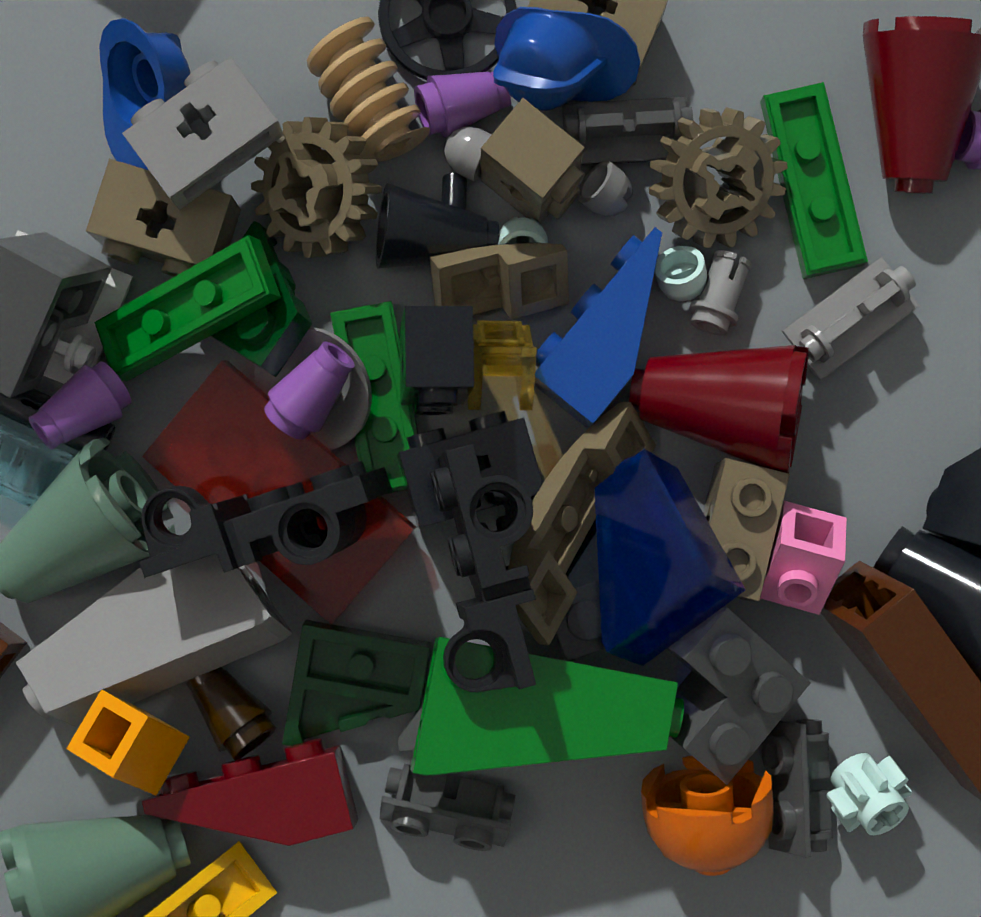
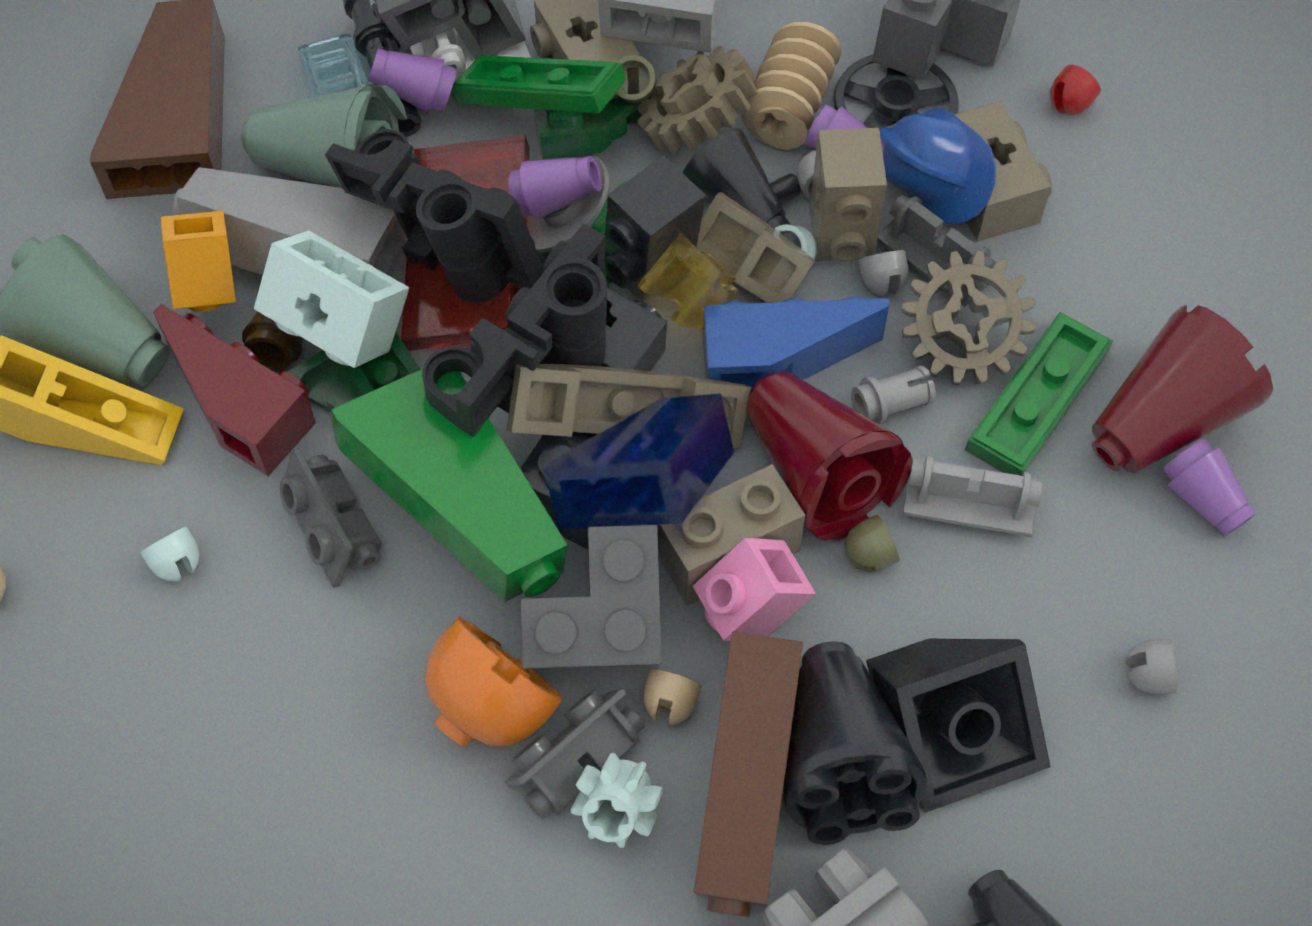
camera: 50 degrees right, 25 degrees down
(259, 212) = (646, 79): none -> olive hinge
(276, 672) = (330, 298): none -> light aqua brick
(681, 273) = (877, 356): light aqua hinge -> none
(824, 681) = (670, 692): none -> tan hinge
(827, 432) = (871, 546): none -> olive hinge

